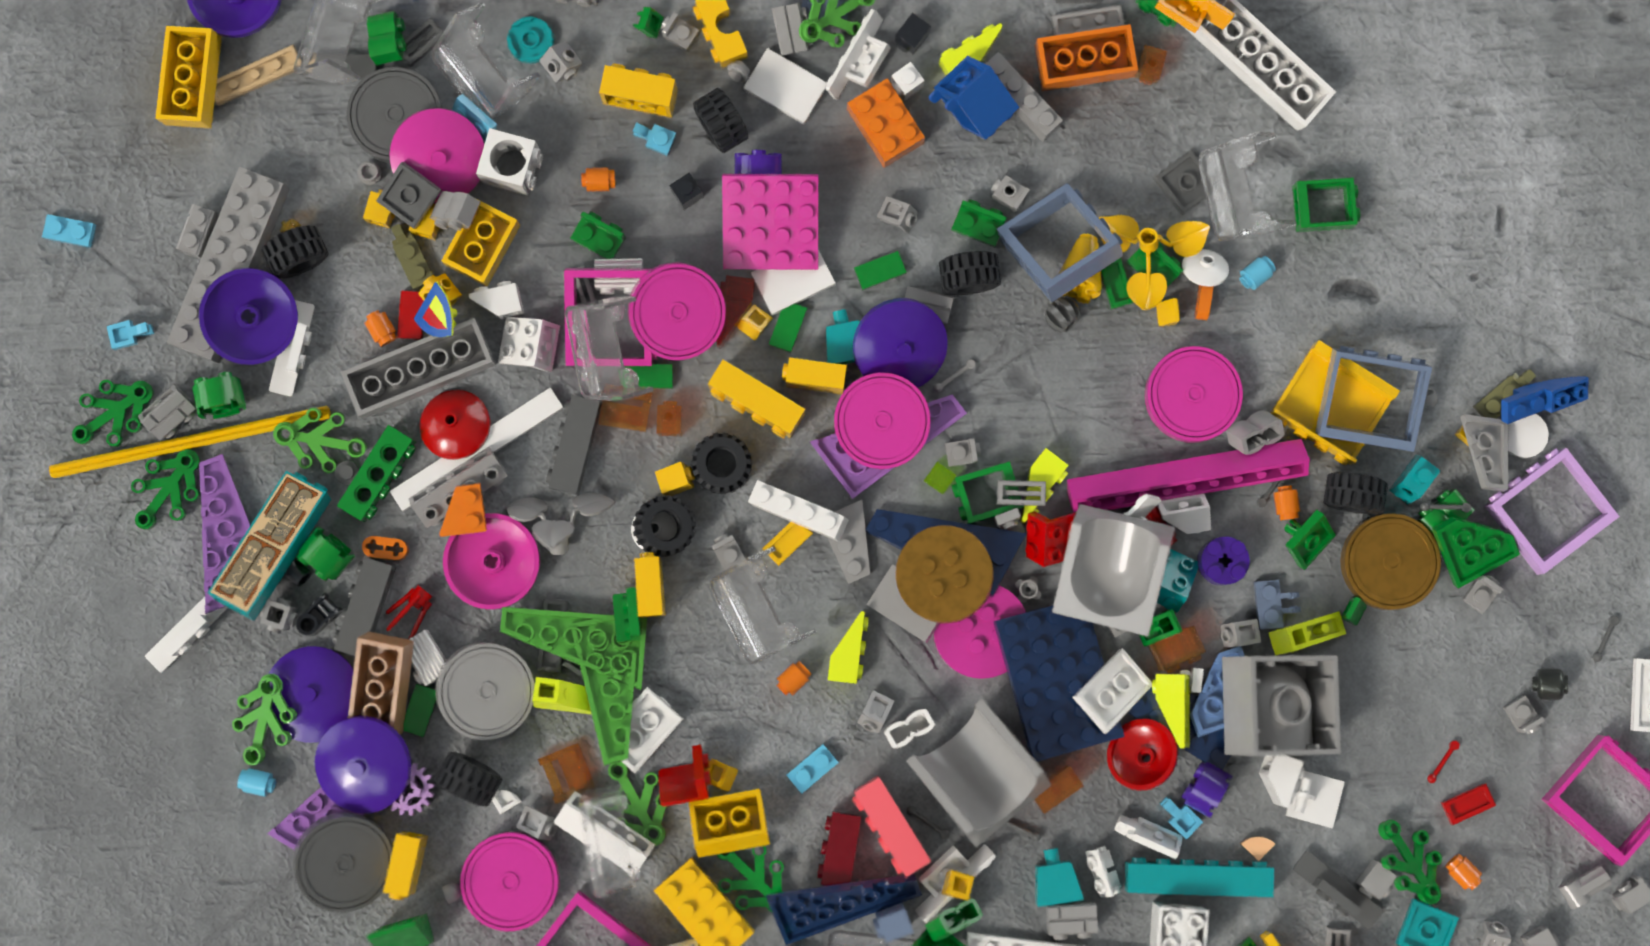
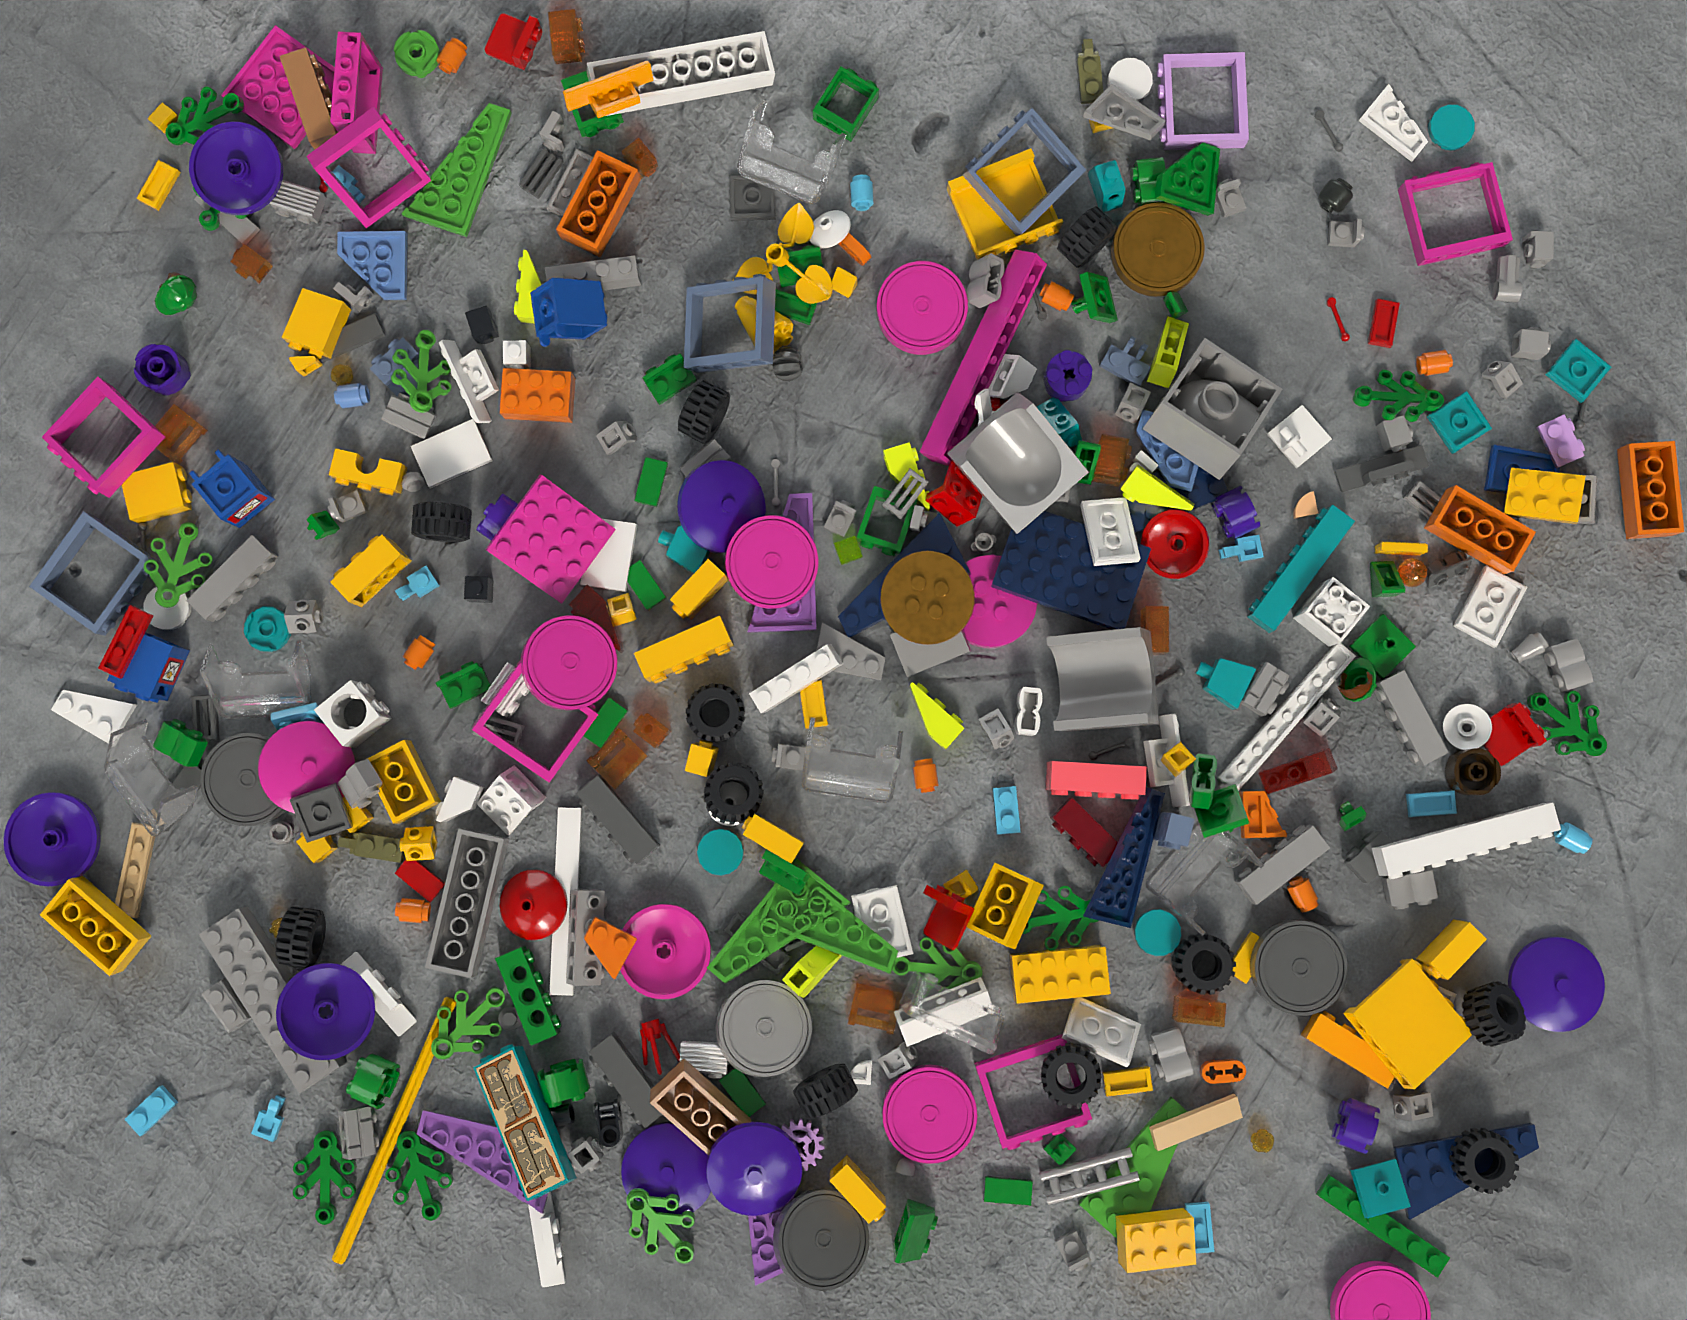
camera: 50 degrees left, 0 degrees up
(256, 782) = (707, 1265): medium azure brick -> none
(385, 542) = (588, 1026): orange beam -> none
(436, 314) = (433, 857): shield -> none
(556, 533) = (677, 884): light grey plant -> none
(598, 350) = (556, 747): clear windscreen -> none
(607, 550) = (720, 852): none -> teal tile
(1012, 201) = (670, 341): light grey brick -> none
(1105, 882) = (1254, 642): white hinge -> none
(1150, 835) = (1241, 582): white hinge -> none
(1280, 778) = (1268, 450): white slope -> none
(1465, 507) = (1155, 163): dark grey hinge -> none
(1544, 395) = (1111, 43): blue slope -> none

